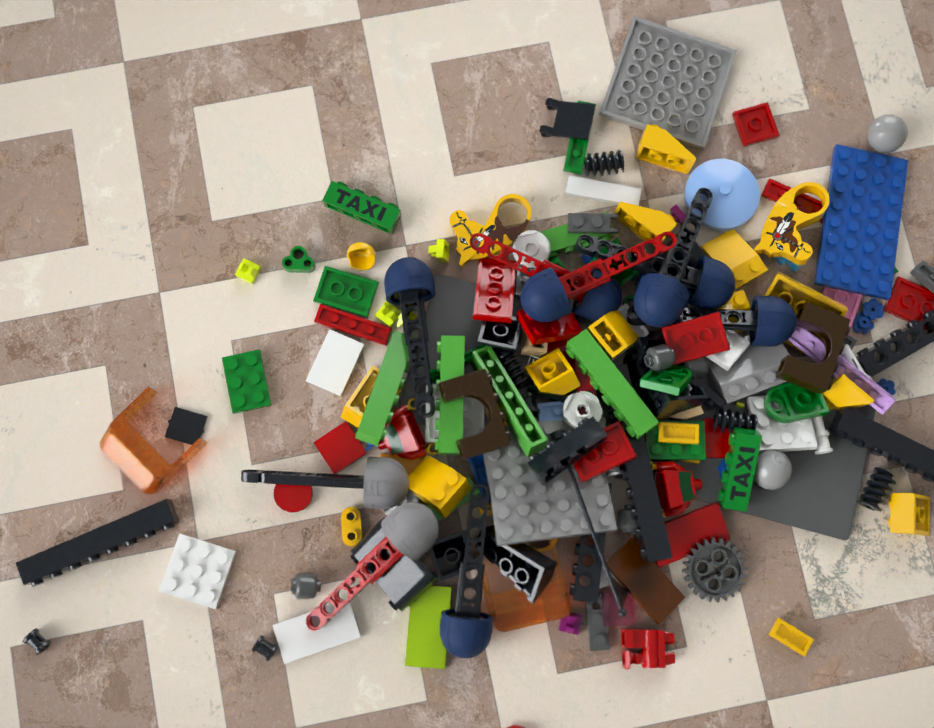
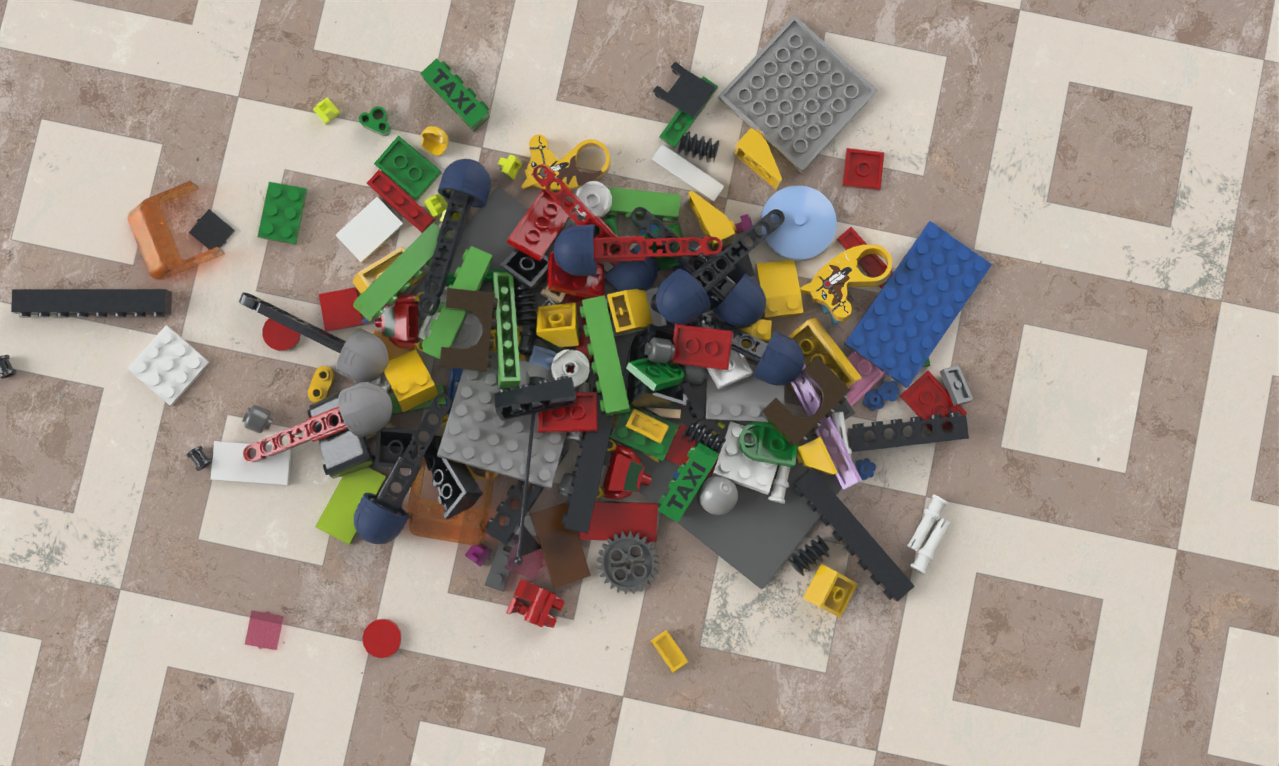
camera: 25 degrees right, 5 degrees up
(591, 223) = (659, 199): dark grey hinge -> none
(887, 133) = (980, 231): light grey piece -> none

